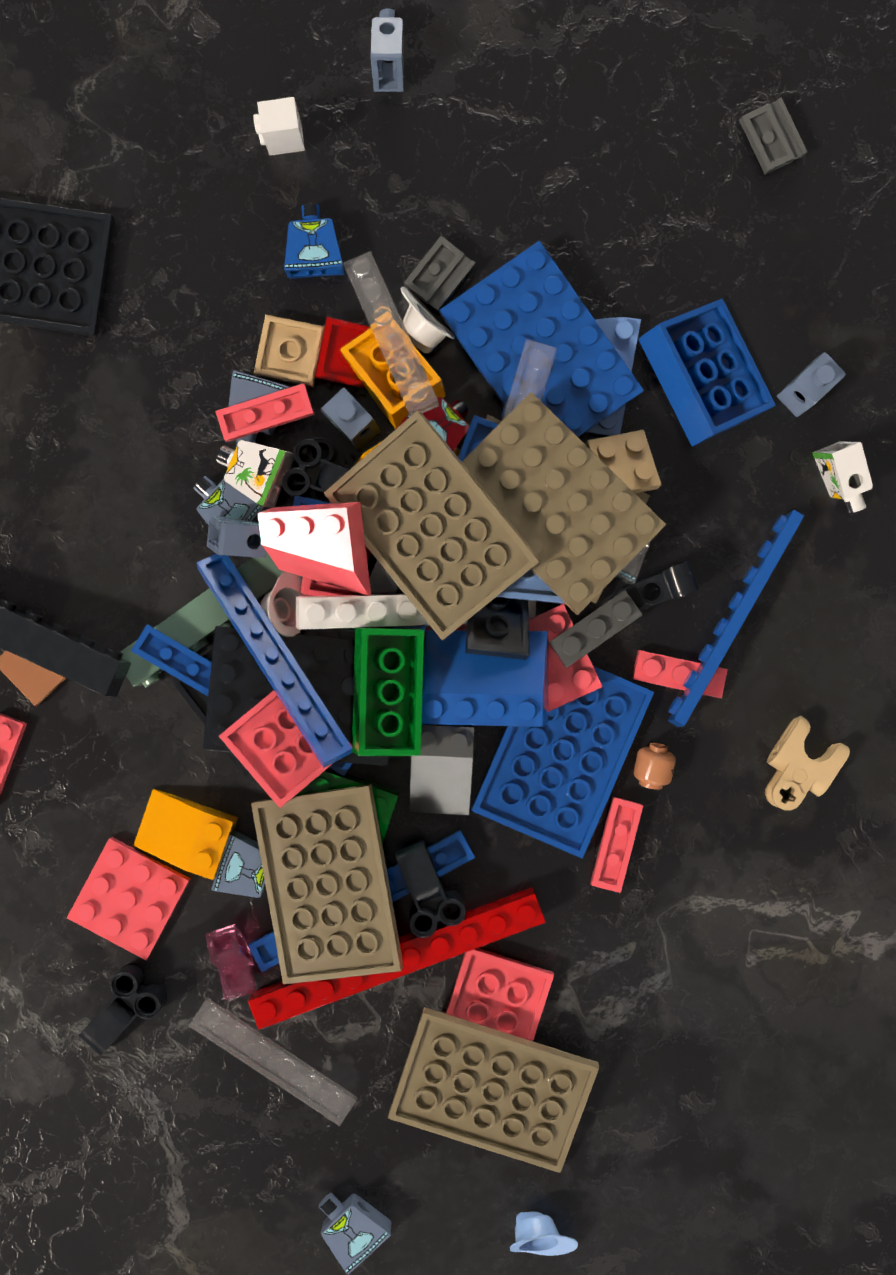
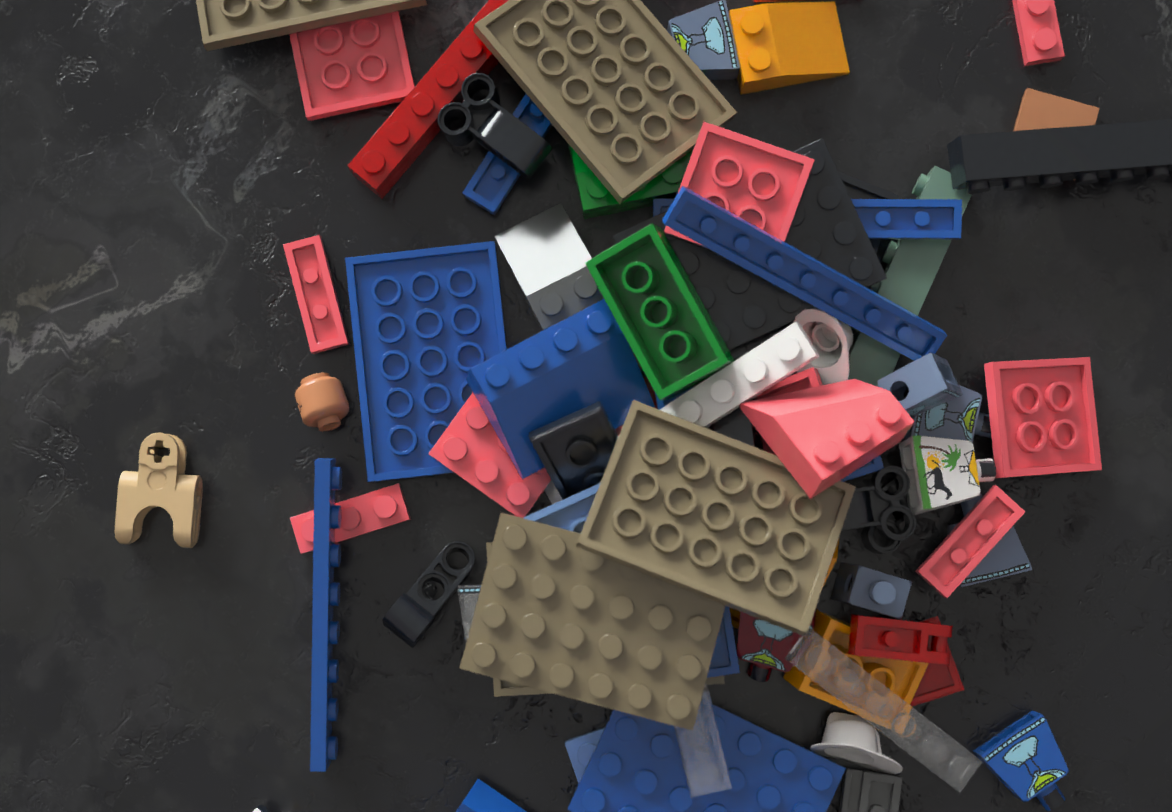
camera: 155 degrees right, 5 degrees down
(163, 470) = (1042, 417): none -> coral plate
(289, 350) = (984, 628): tan plate -> none
(353, 374) = (899, 639): none -> red plate
(595, 629) = (471, 511): dark grey plate -> none
(628, 458) = (542, 720): tan plate -> none

